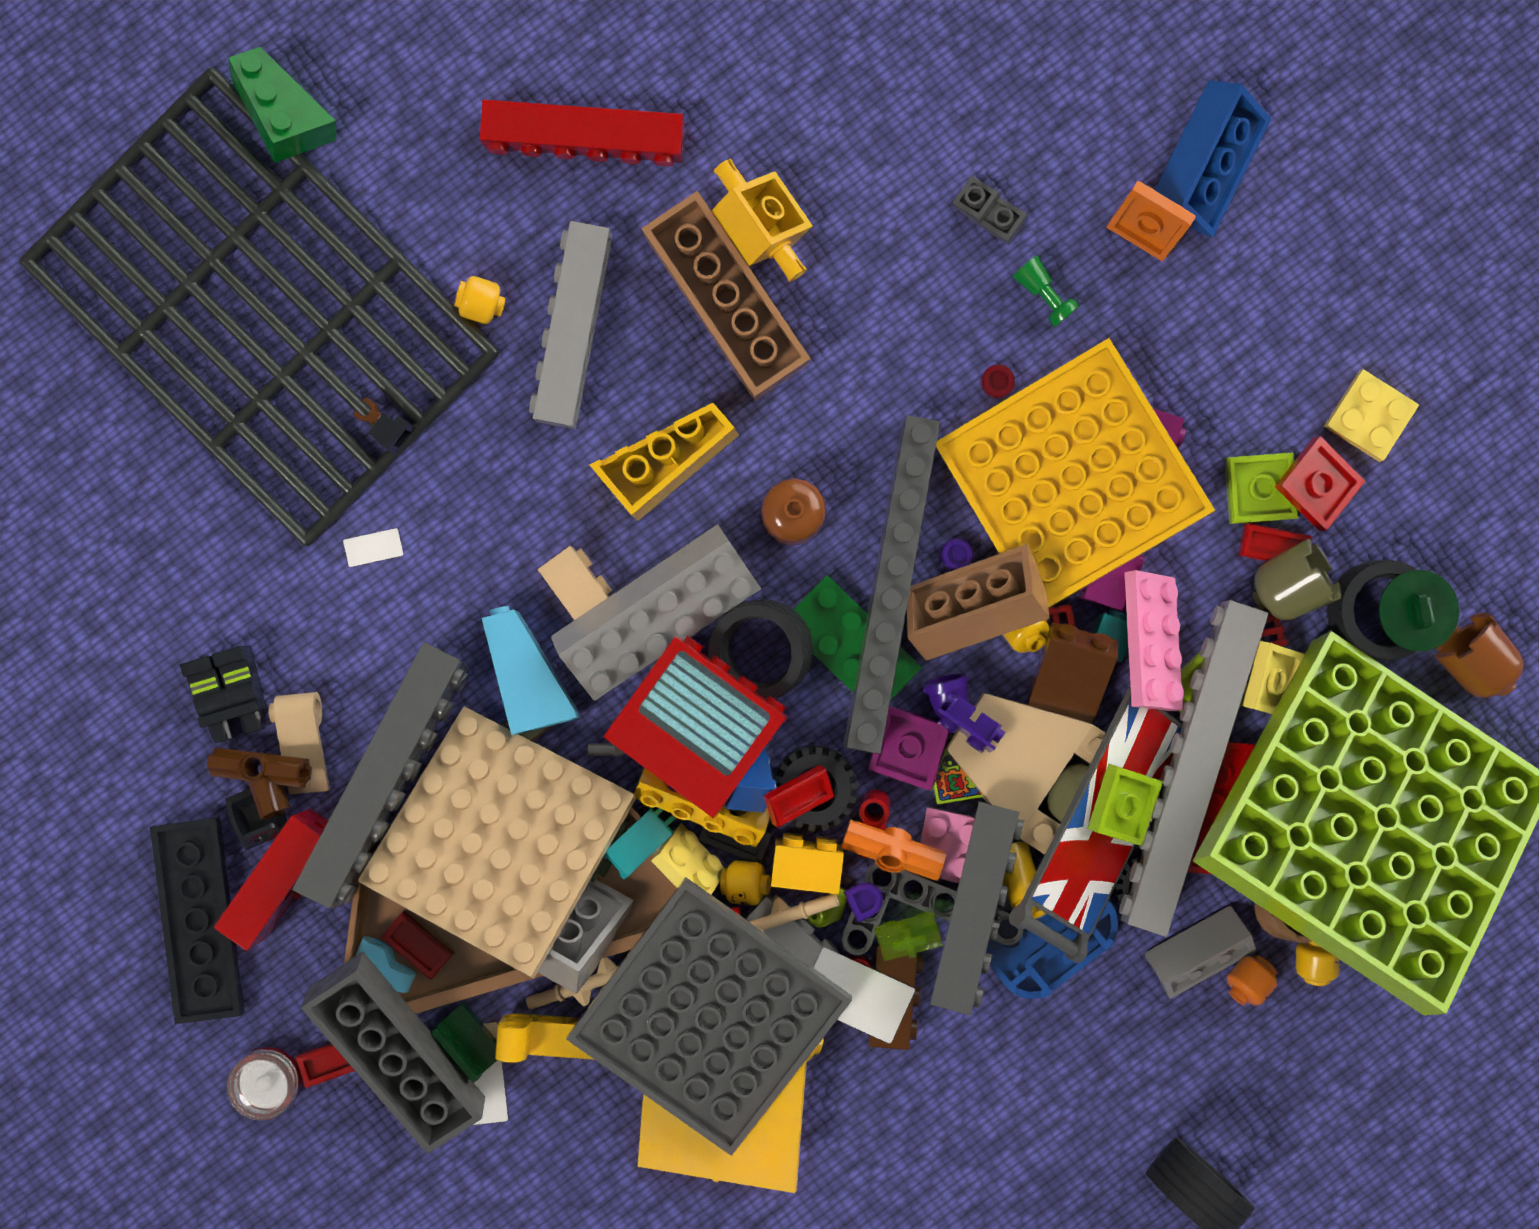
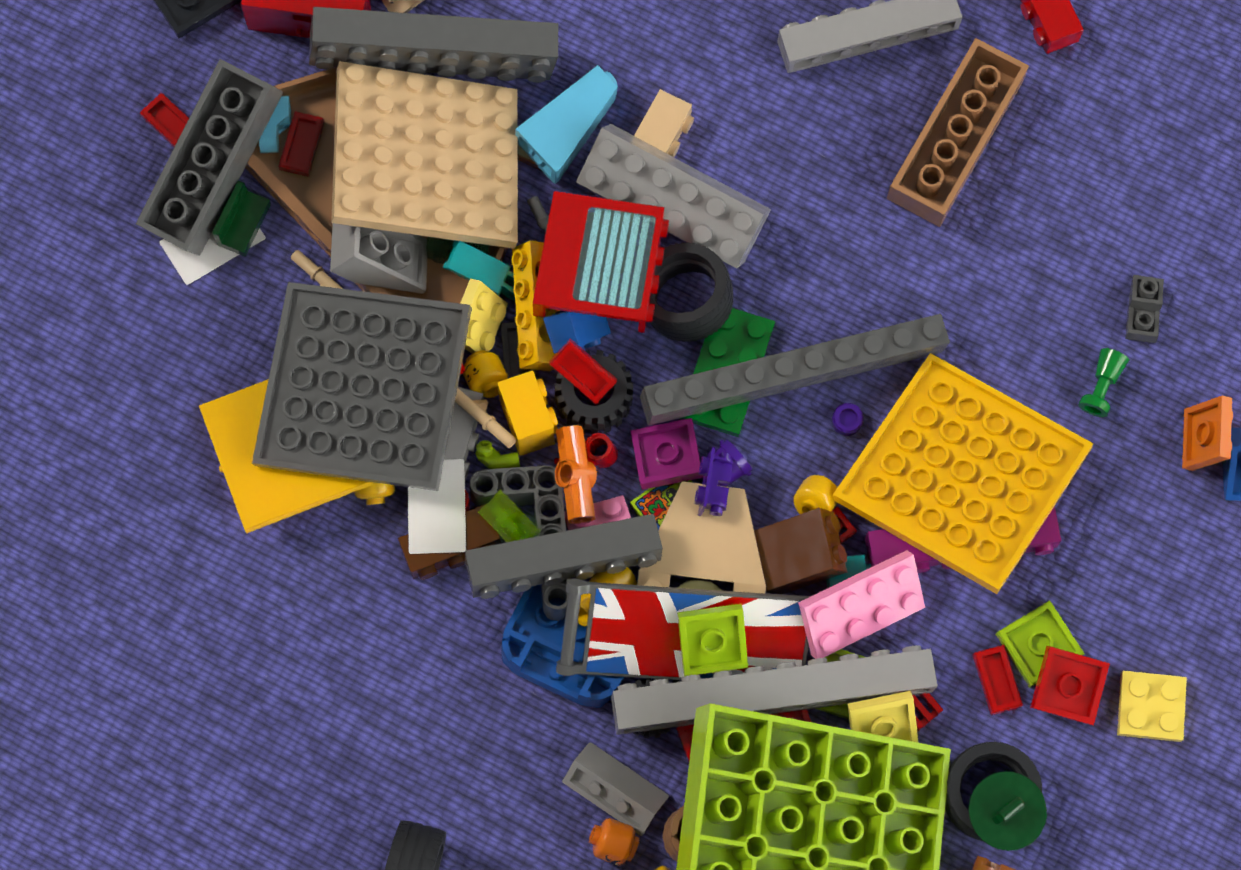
camera: 60 degrees right, 15 degrees down
(264, 1083) = (129, 77): clear piece -> none
(535, 1035) = (270, 267): yellow beam -> none
(664, 459) = (800, 147): yellow wedge -> none
(761, 219) = (1034, 127): yellow brick -> none
(793, 511) = (813, 266): dark orange cylinder -> none
(864, 900) = (520, 472): dark purple tile -> none
(976, 603) = (815, 443): medium nougat slope -> none
(997, 381) = (1009, 381): dark red tile -> none
(1295, 582) = (976, 701): olive cylinder -> none

